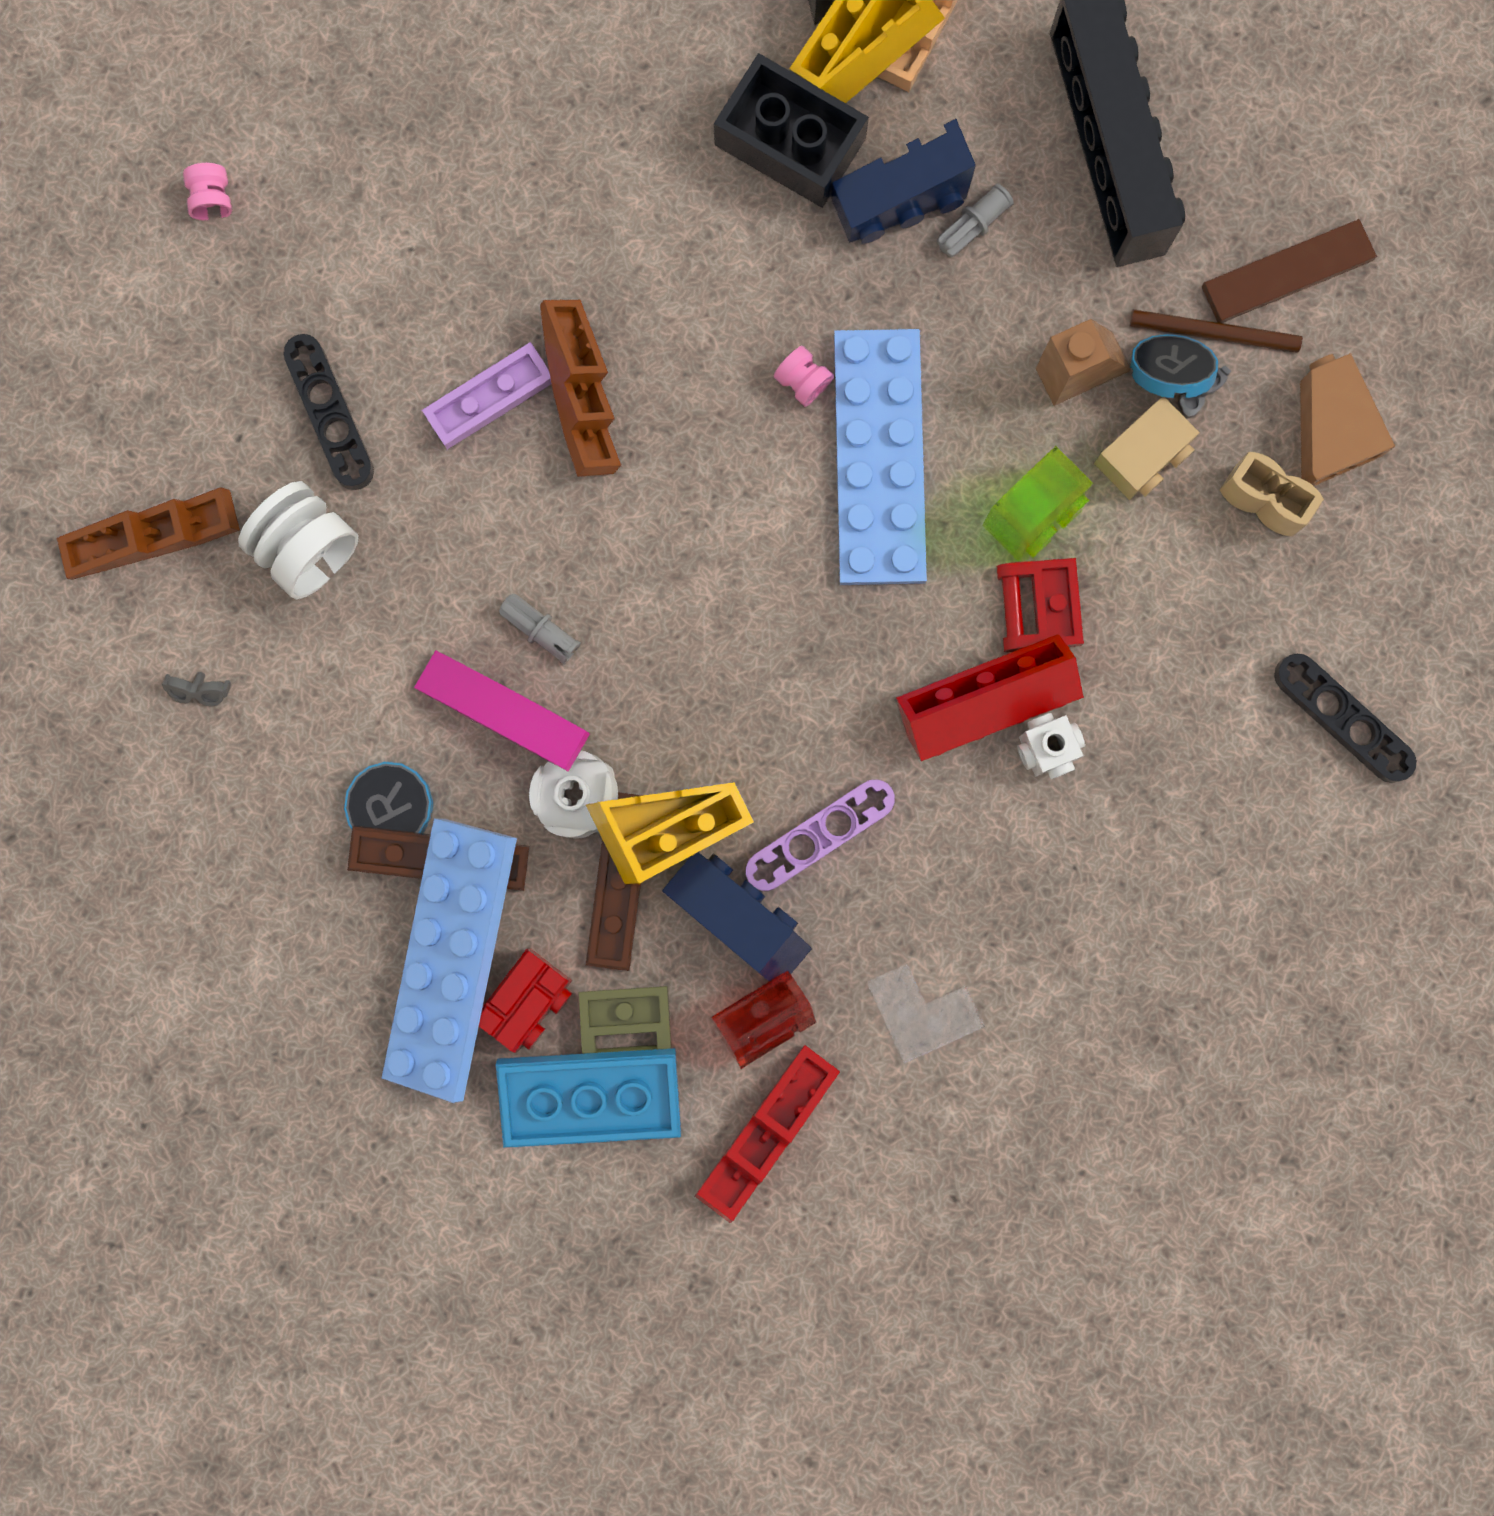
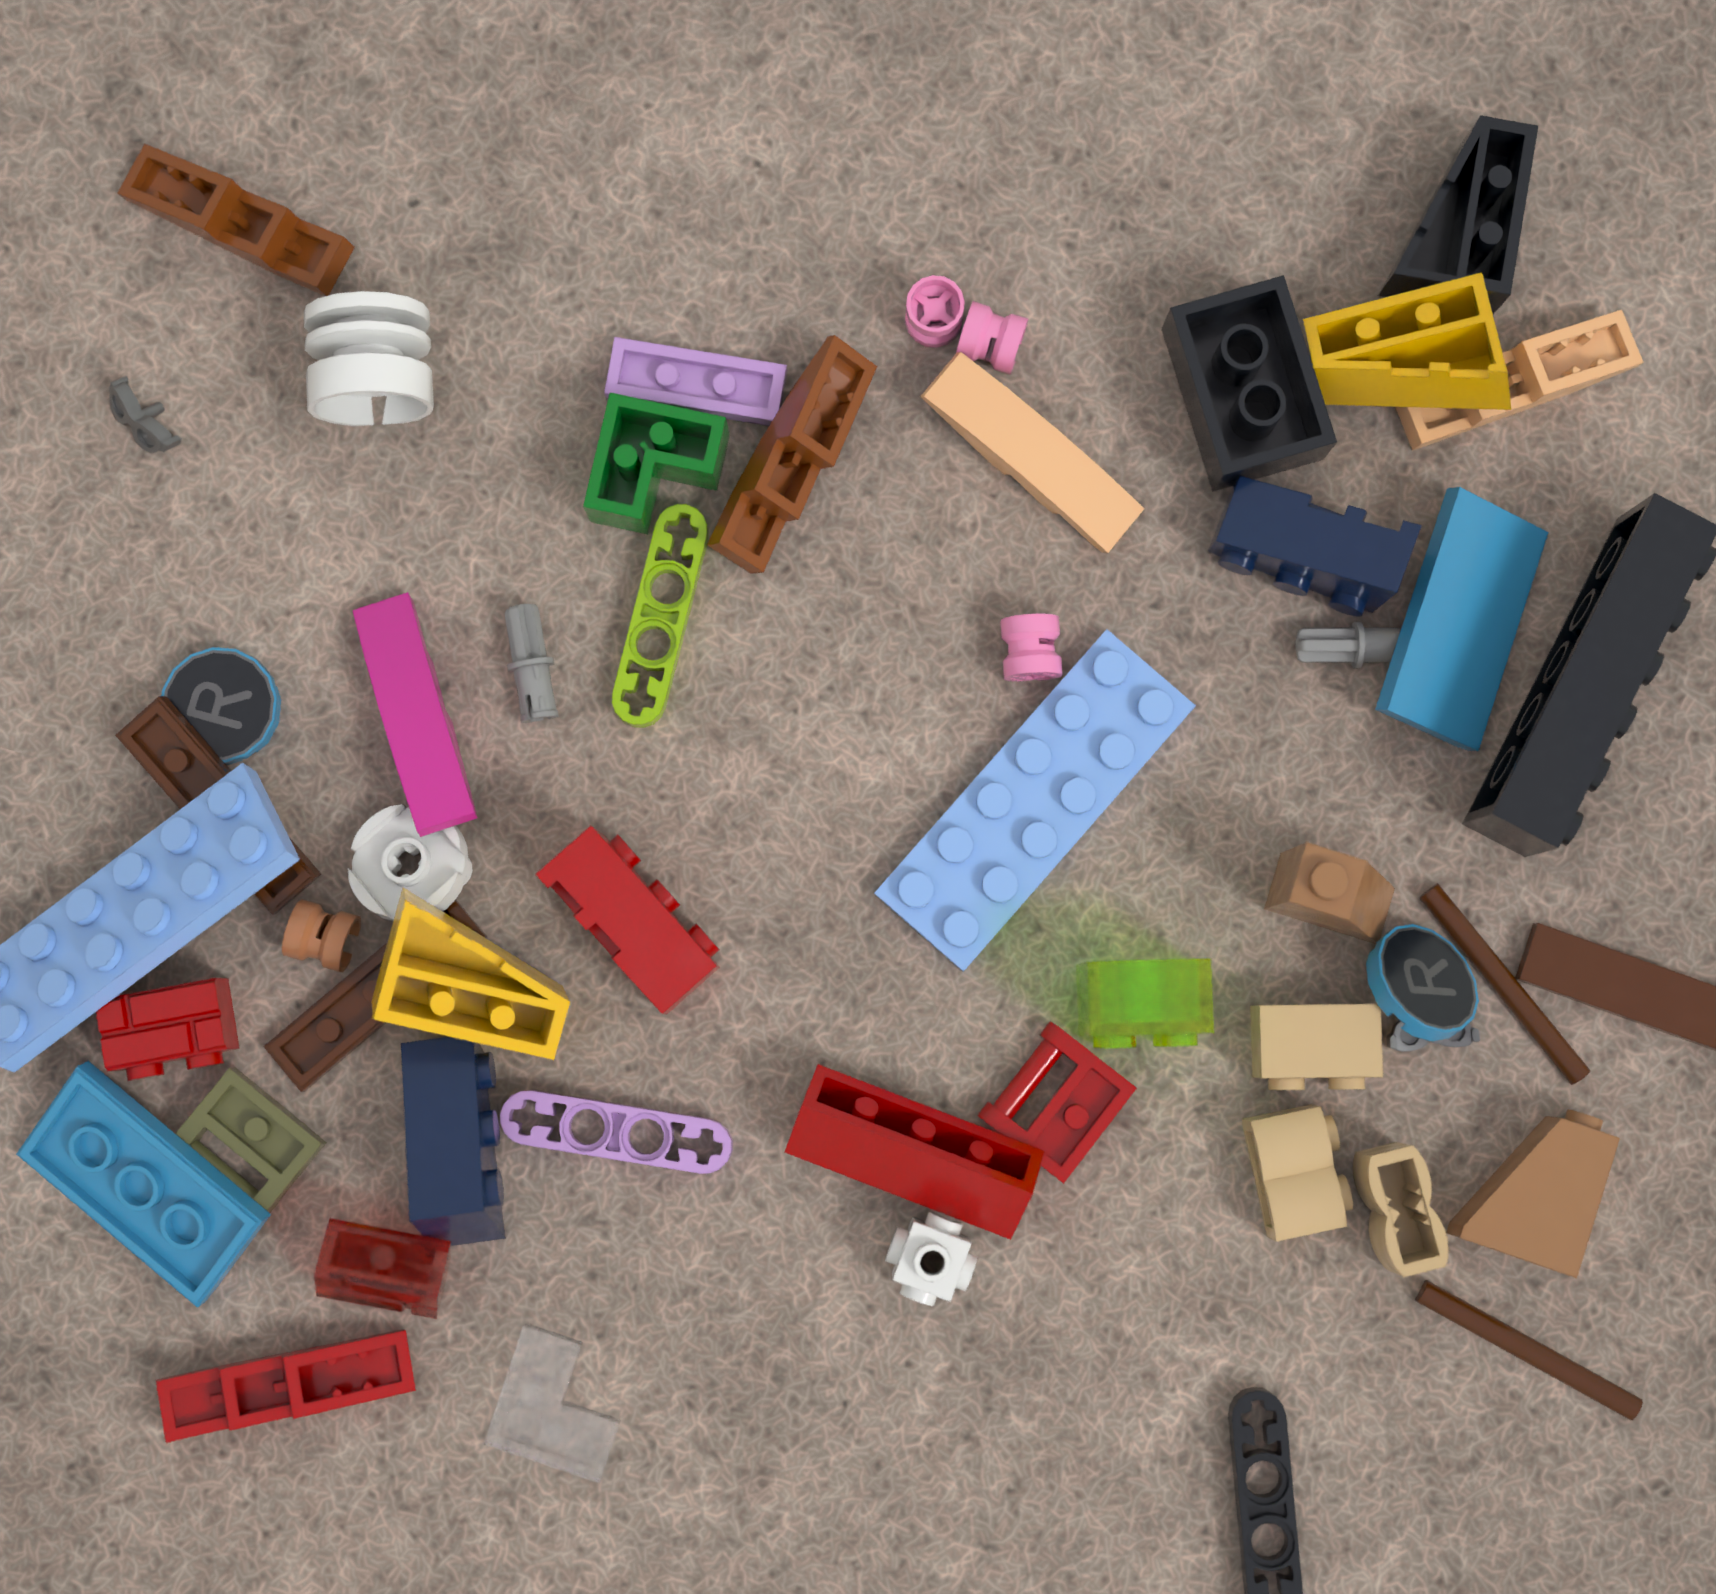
camera: 40 degrees right, 0 degrees up
(325, 414) = (518, 255): black beam -> none
(497, 448) = (646, 444): none -> green brick
(552, 878) = (319, 935): none -> nougat wheel
(581, 233) = (938, 301): none -> bright pink wheel
(589, 538) = (652, 614): none -> lime beam
(619, 233) = (981, 328): none -> bright pink wheel
(707, 270) = (1032, 452): none -> light nougat slope
(723, 712) = (631, 918): none -> red wedge
(1018, 156) = (1462, 619): none -> dark azure tile
(1199, 526) = (1297, 1172): none -> tan brick
(1403, 511) = (1529, 1350): none -> reddish brown bar

